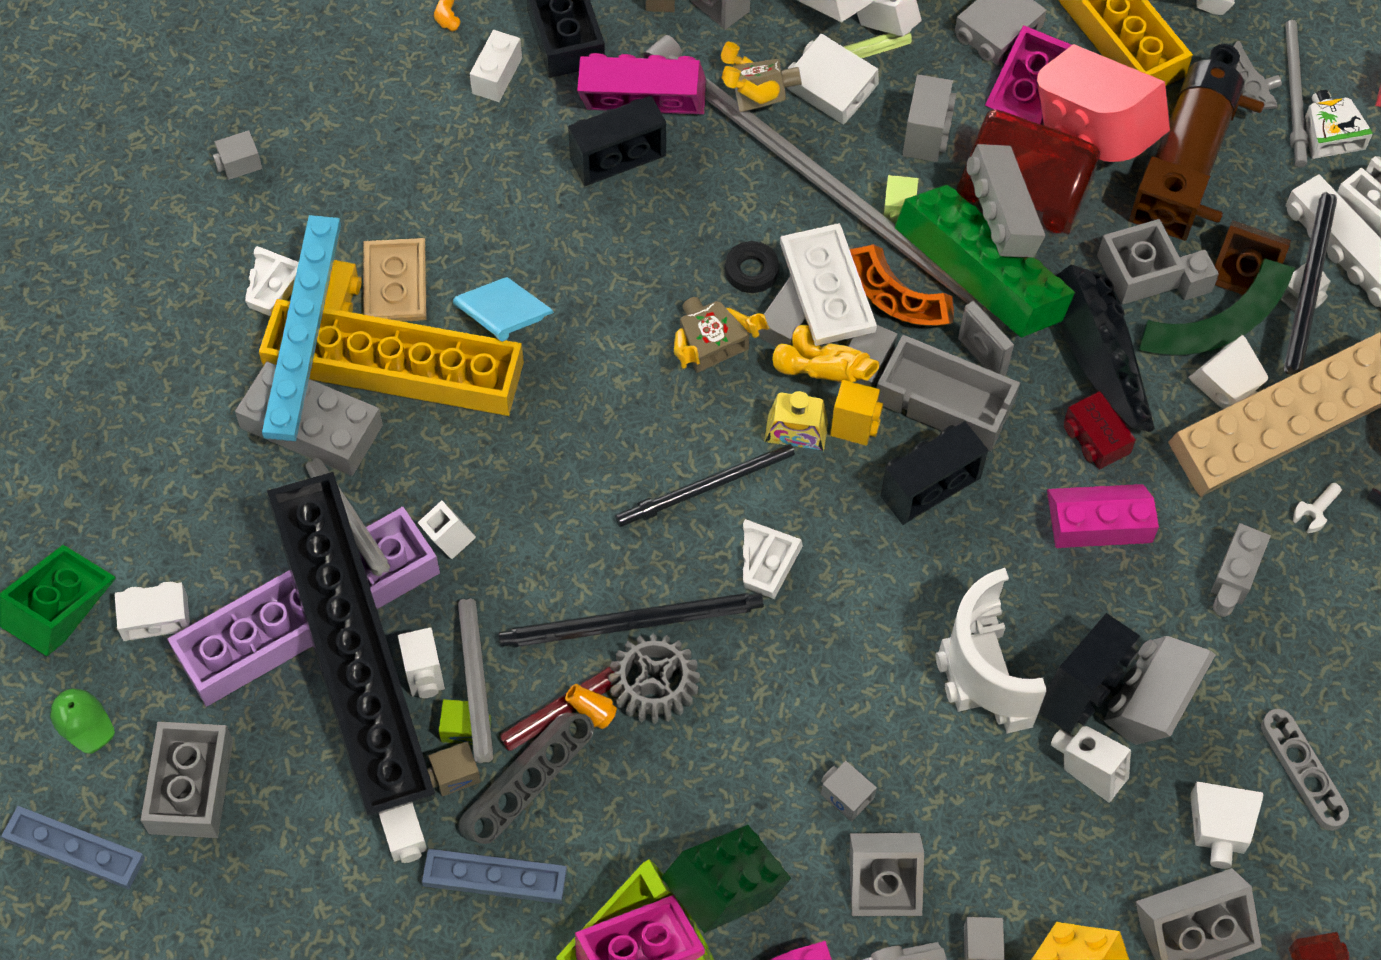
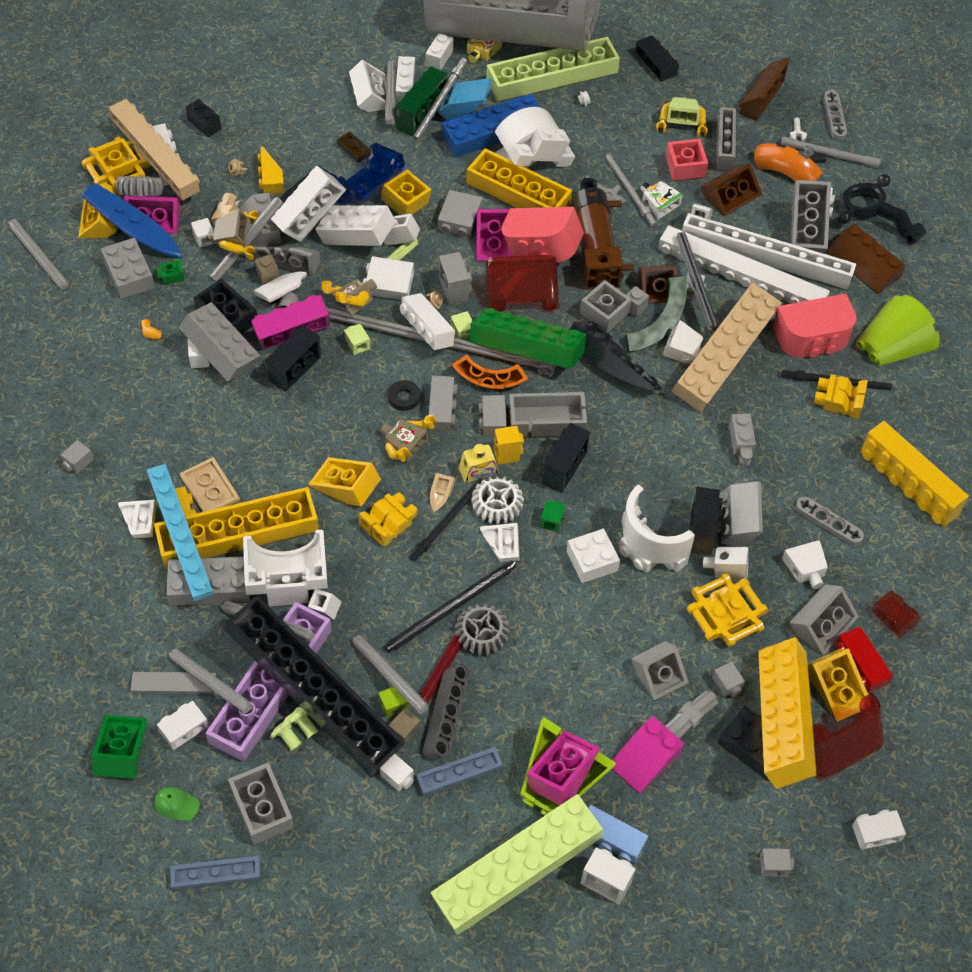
camera: 30 degrees left, 5 degrees down
(179, 543) = (168, 683): none -> light grey tile
(220, 566) = (210, 681): none -> light grey axle
(285, 696) = (284, 730): none -> yellowish green connector
(411, 455) = (285, 574): none -> white piece
(421, 663) = (356, 676): white brick -> none
(502, 307) = (283, 473): medium azure piece -> none
(522, 70) = (219, 341): none -> light grey brick
(589, 359) = (346, 480): none -> yellow slope
(592, 704) = (458, 657): light orange cone -> none
(621, 440) = (390, 515): none -> yellow hips
(666, 24) = (280, 286): none -> white tile
(719, 436) = (441, 490): none -> tan plate
(725, 878) = (585, 708): dark green brick -> none
(730, 151) = (357, 339): none -> yellowish green brick
(818, 482) = (496, 505): none -> white gear
(825, 362) = (477, 425): yellow piece -> none
(828, 284) = (455, 385): white plate -> none
(846, 168) = (427, 321): none -> white brick
(847, 790) = (616, 637): light grey brick -> none
(863, 553) = (552, 515): none -> green brick
(883, 140) = (435, 299): none -> tan plate
(887, 645) = (593, 555): none -> white brick
(985, 340) = (551, 378): light grey plate -> none
(1005, 201) = (525, 301): light grey brick -> none
(1048, 832) = (727, 610): none -> yellow brick
(1098, 430) = (634, 400): dark red brick -> none
(1102, 515) = (660, 442): dark pink slope -> none
(1316, 509) = (761, 392): white bar -> none

